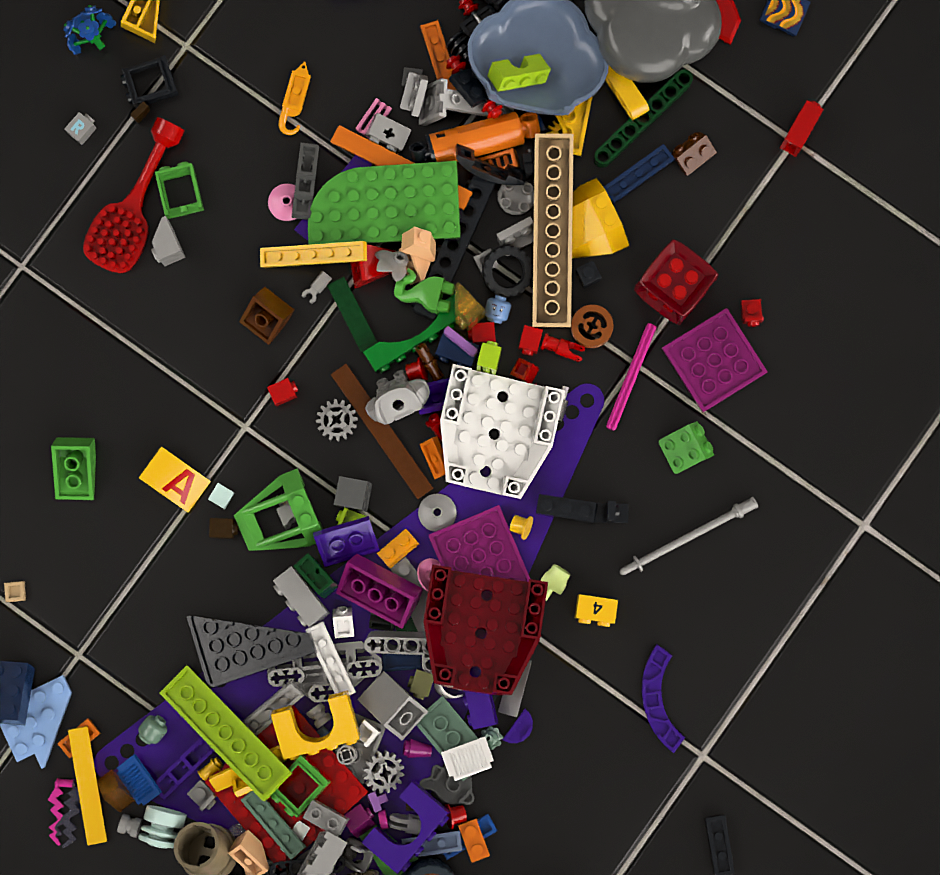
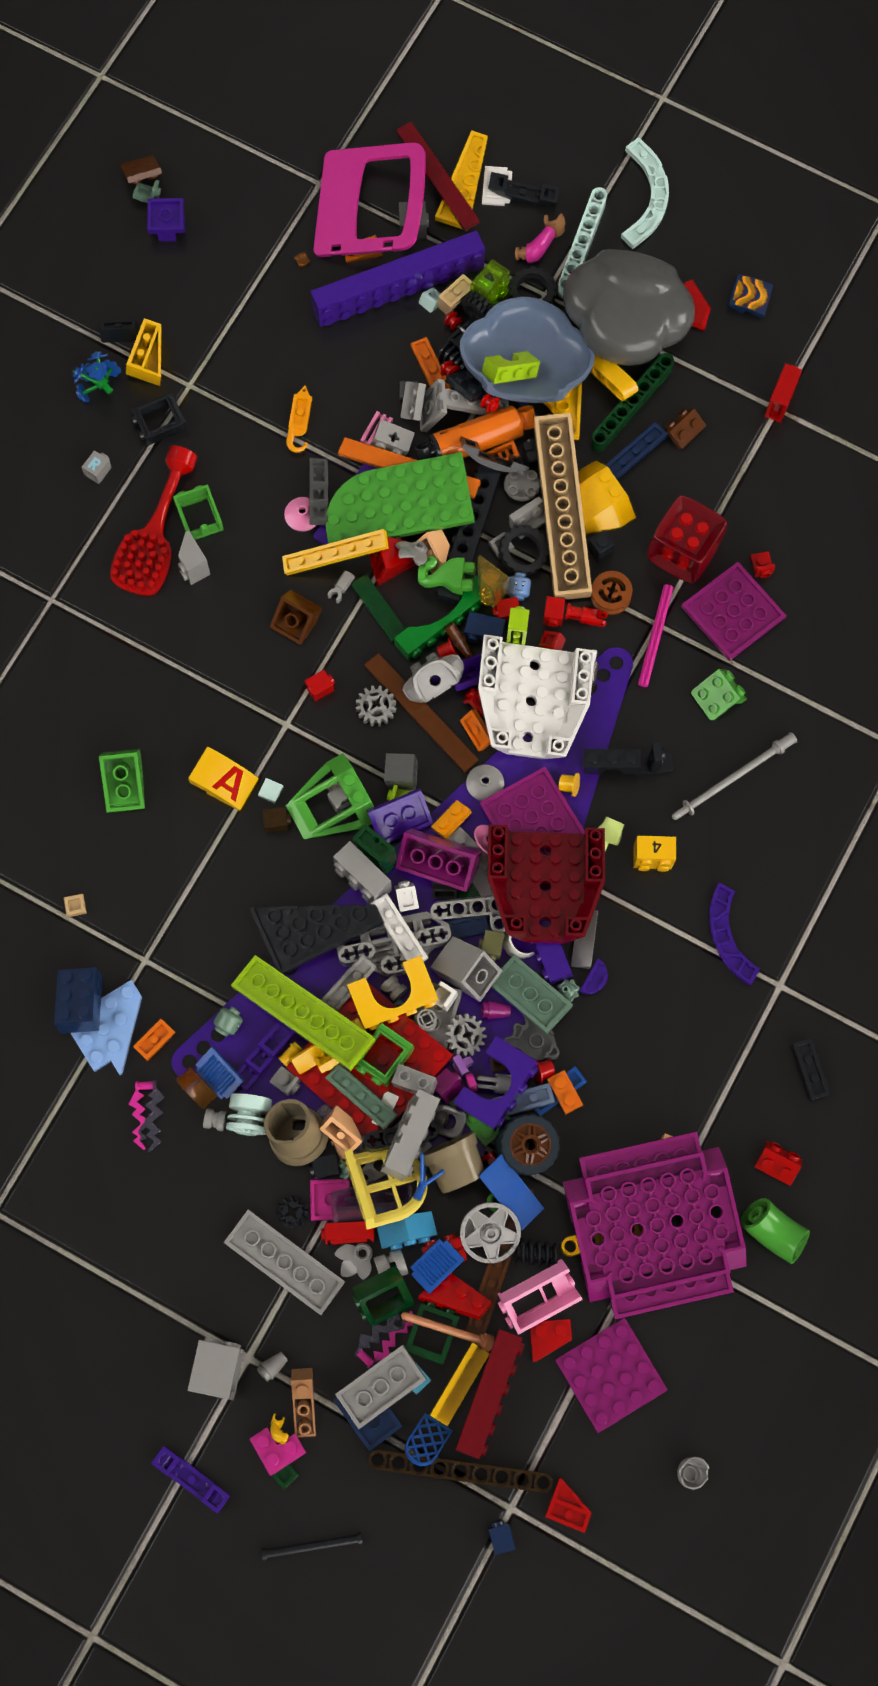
camera: 10 degrees left, 10 degrees down
(87, 785) = (167, 1084): yellow tile -> none
(140, 112) = (153, 446): dark brown tile -> none
(419, 243) = (436, 529): light nougat slope -> none
(460, 341) = (487, 615): medium lavender tile -> none
(468, 759) = (548, 1010): white window -> none

